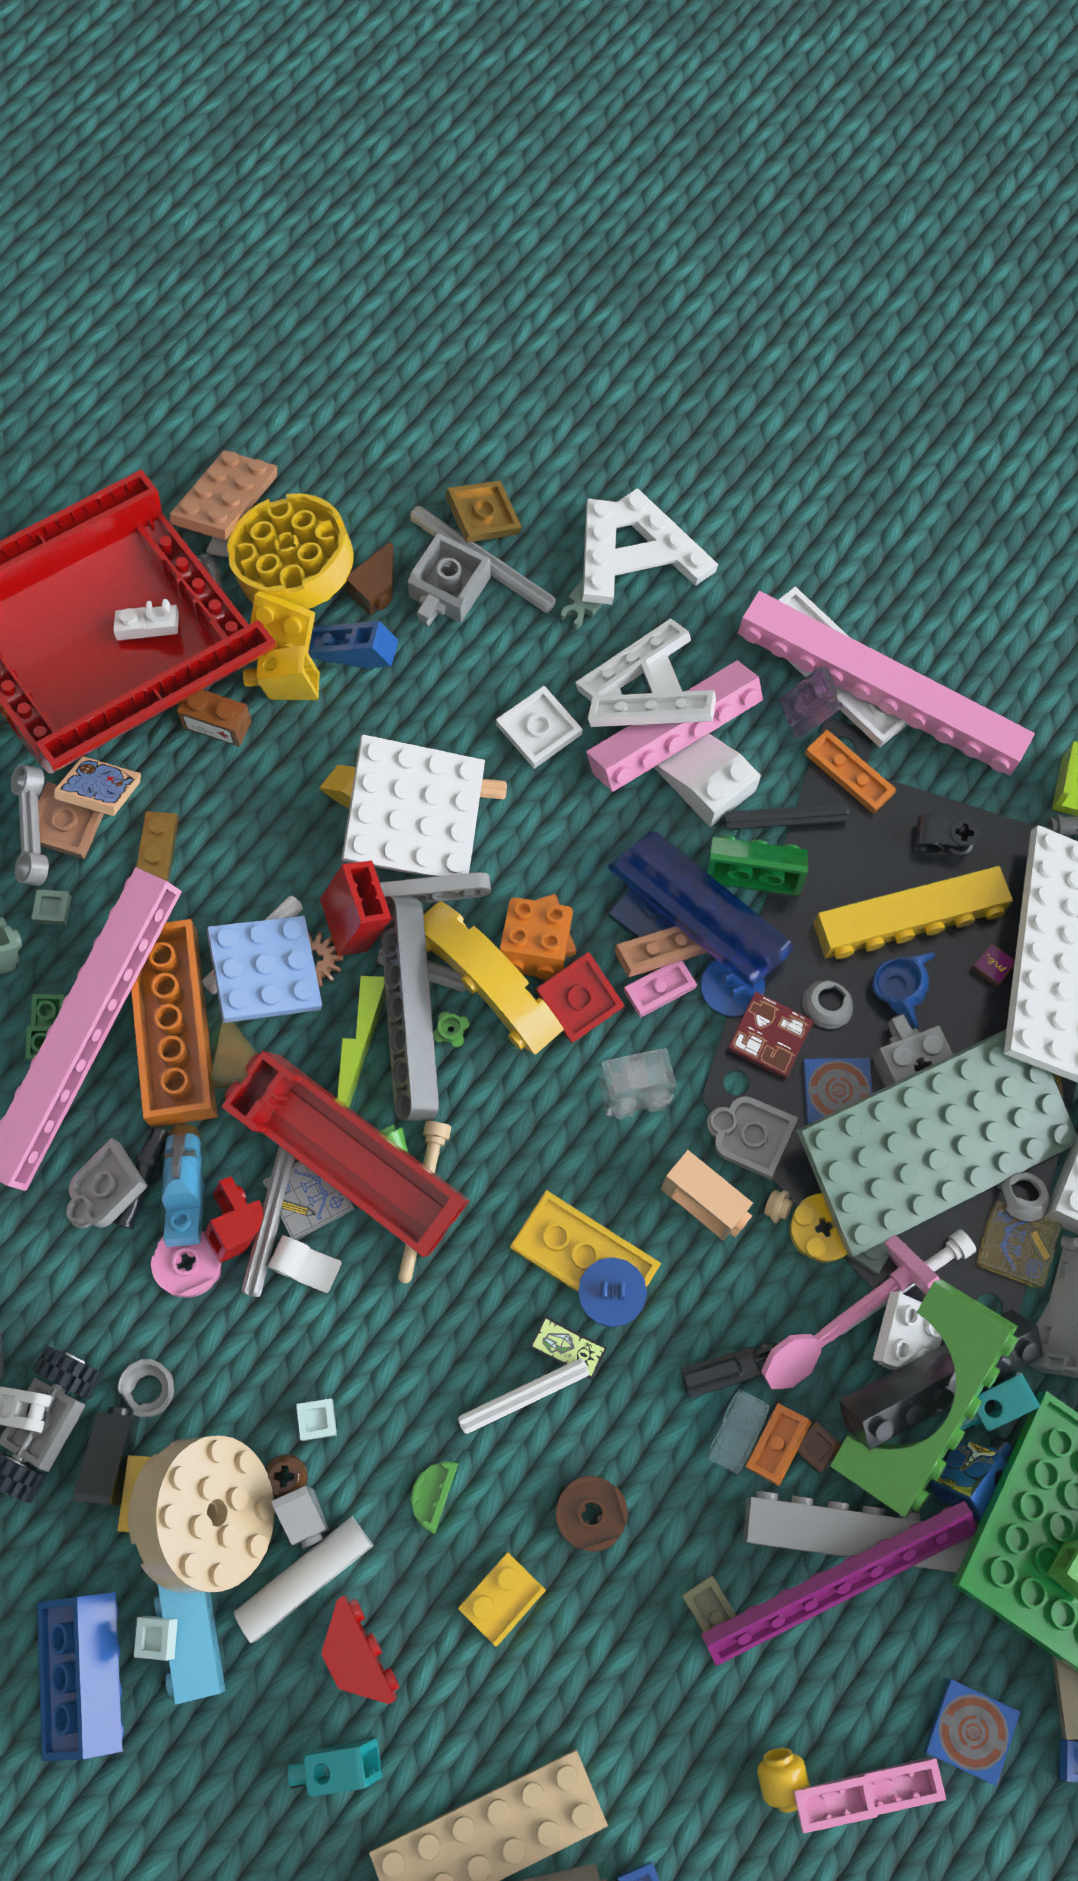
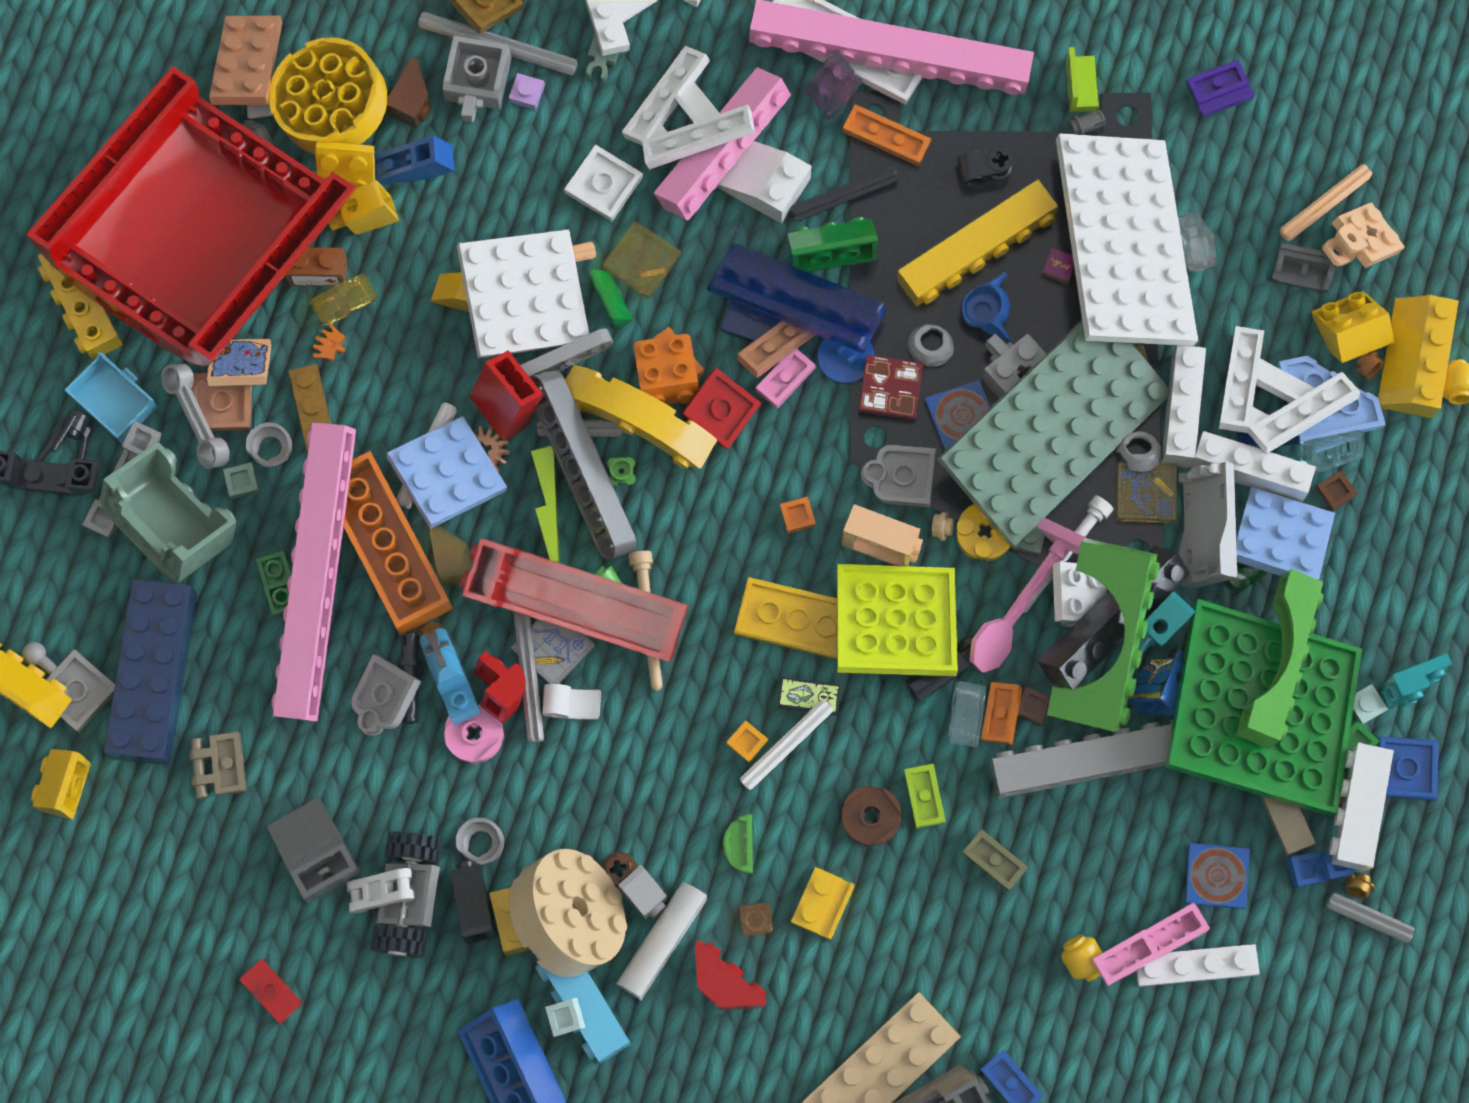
camera: 15 degrees left, 5 degrees up
(90, 866) = (265, 431): none -> light grey piece
(146, 621) = (224, 202): white plate -> none
(200, 799) = (329, 345): none -> orange piece
(230, 756) = (343, 298): none -> clear yellow slope
(316, 1419) = (627, 819): light aqua plate -> none
(350, 1767) = (751, 1058): teal torso -> none
(419, 1590) = (756, 919): none -> clear orange tile
(481, 1377) = (747, 741): none -> light orange plate
(494, 613) = (526, 91): none -> lavender plate
(504, 844) = (609, 298): none -> green slope
(551, 816) = (641, 259): none -> clear yellow tile
(612, 1292) = (820, 640): blue piece -> none
(623, 1140) = (797, 515): none -> orange plate
(637, 1083) = (793, 464): clear brick -> none
(659, 1512) = (924, 796): none -> lime plate
(693, 1297) = (896, 620): none -> neon yellow plate
(839, 1583) = (1080, 797): magenta plate -> none
(924, 1840) = (1200, 966): none -> white plate

